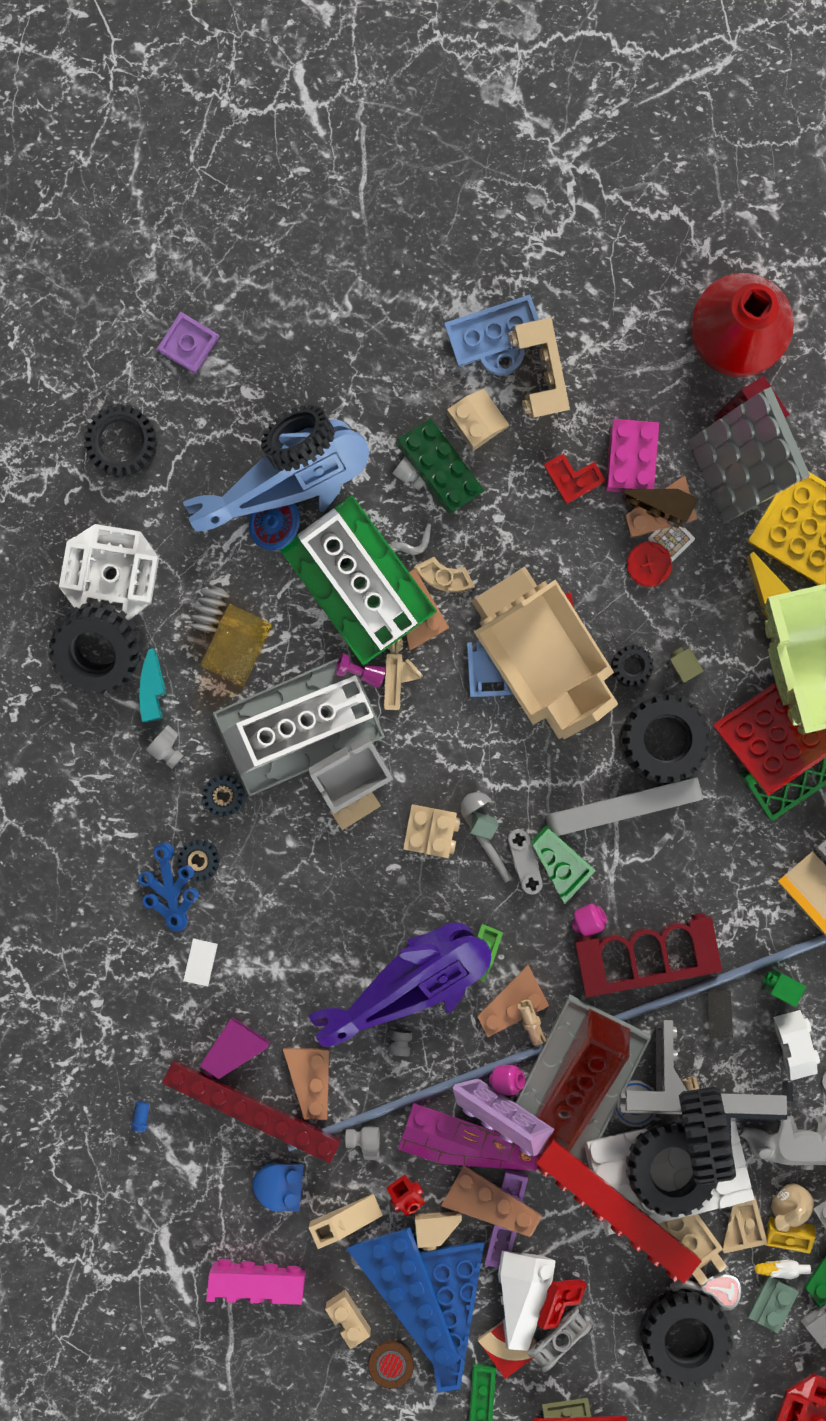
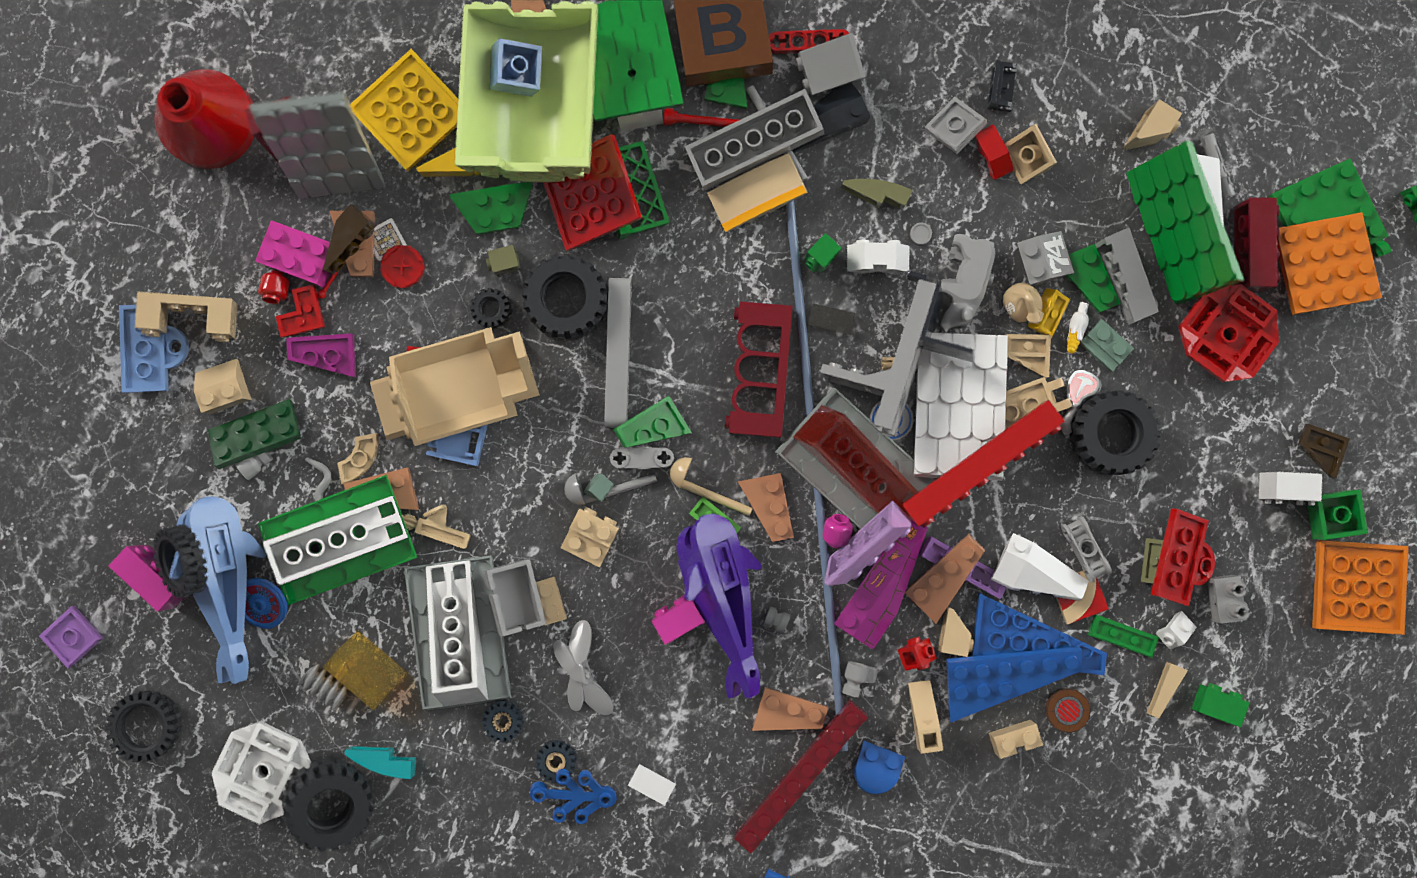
camera: 70 degrees left, 0 degrees up
(162, 747) = (442, 766): light grey piece -> none
(232, 1049) = (738, 777): magenta slope -> none
(255, 1282) = (959, 816): dark pink wedge -> none
(270, 402) = (139, 571): none -> dark pink brick
(302, 851) = (574, 661): none -> light grey piece
(370, 674) = (428, 553): magenta piece -> none
(374, 944) = (677, 619): none -> dark pink brick
(521, 903) = (677, 475): none -> tan piece
(531, 1022) = (791, 493): tan pin -> none
(541, 512) = (324, 352): none -> magenta wing
(558, 1296) = (1046, 539): red plate -> none
(589, 920) = (712, 414): dark pink head -> none
(592, 442) = (273, 287): none -> red head
(598, 492) = (322, 294): none -> red hinge
(639, 1175) = (983, 385): black tyre -> none
(707, 1135) = (933, 362): black tyre -> none
(735, 639) = (494, 207): none -> green wing

